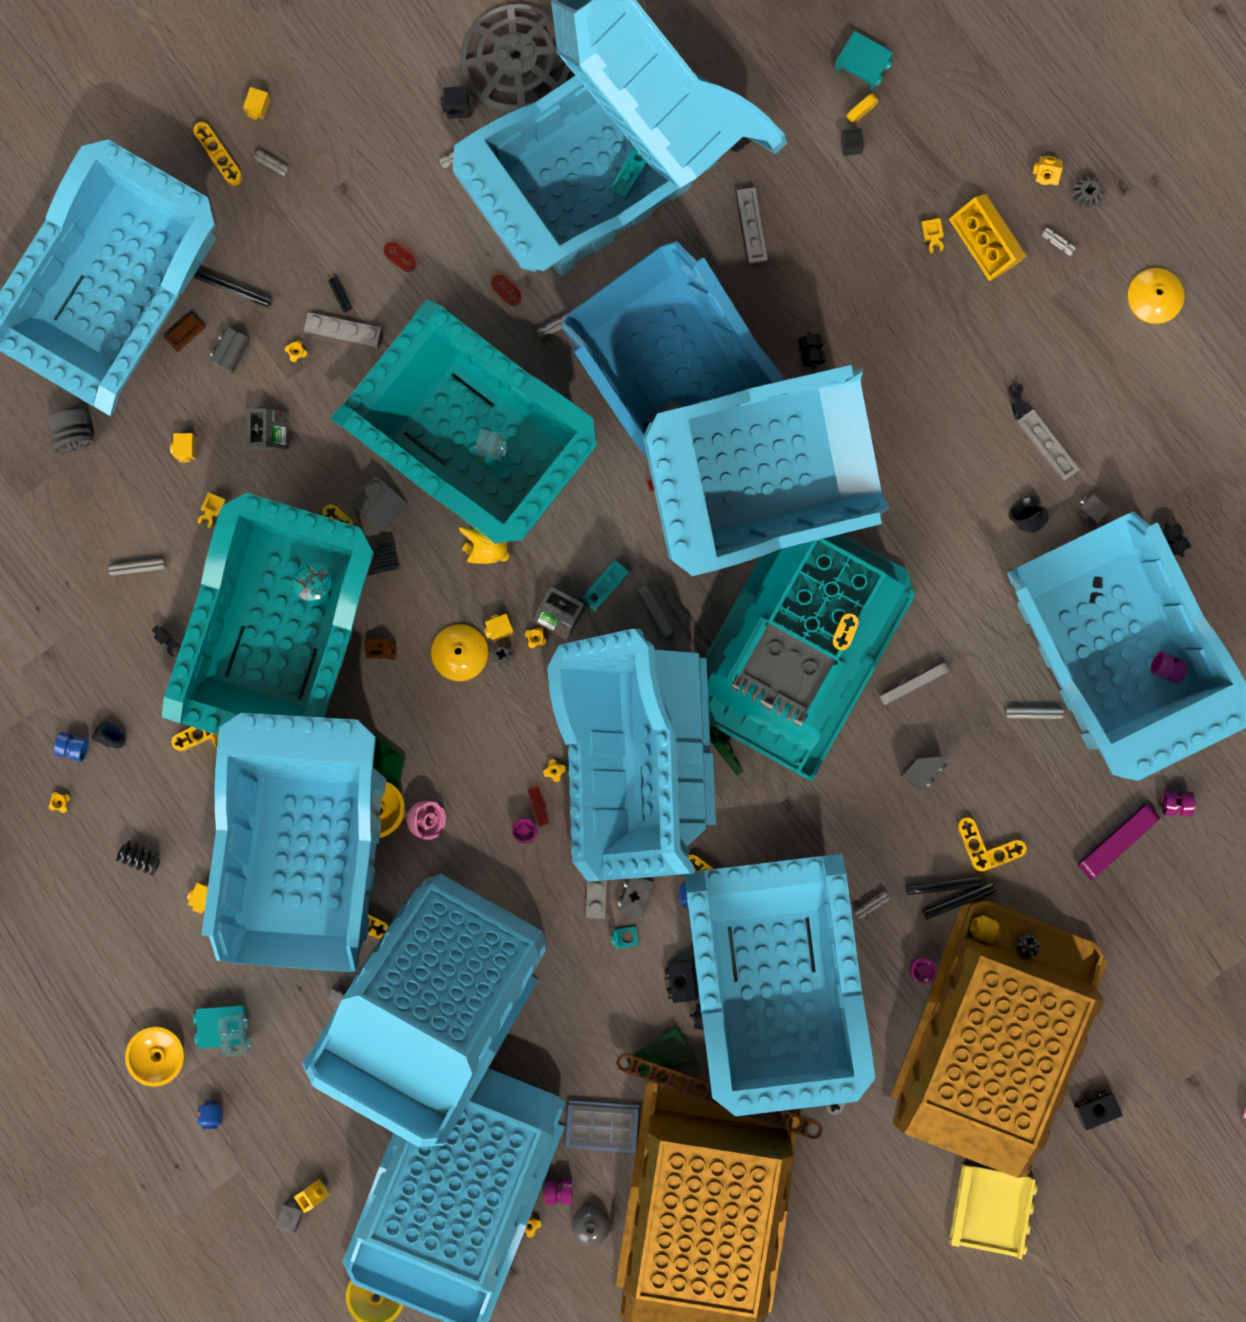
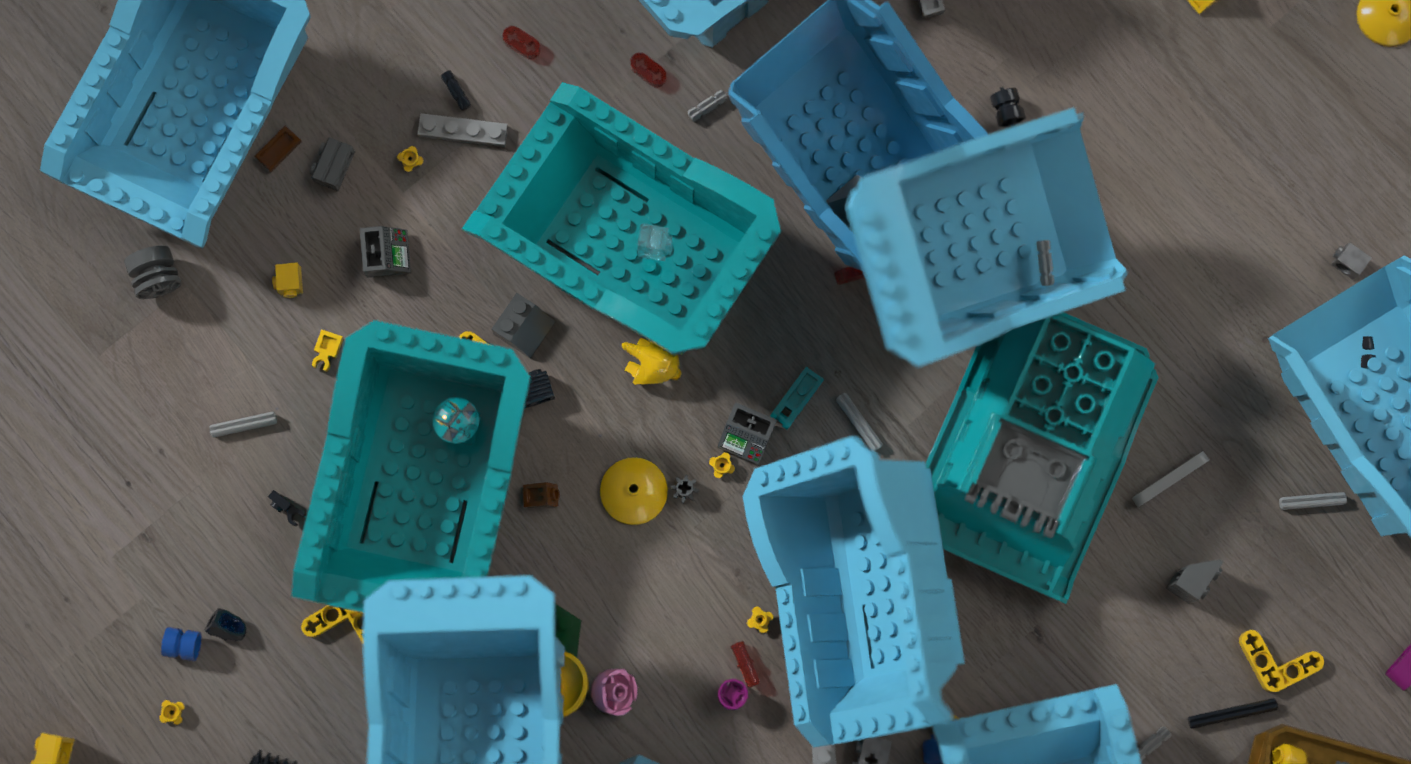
camera: 15 degrees left, 5 degrees down
(233, 288) = (330, 93): black axle -> none
(498, 627) = (677, 457): yellow brick -> none
(724, 750) = (960, 578): dark green wing -> none
(819, 492) = (1045, 262): none -> light grey axle
(850, 633) = (1100, 422): yellow beam -> none
(959, 900) = (1252, 730): black axle -> none
(1018, 406) = (1250, 151): black plate -> none
(1028, 514) = (1278, 273): black helmet -> none
(1048, 445) = (1289, 192): light grey plate -> none

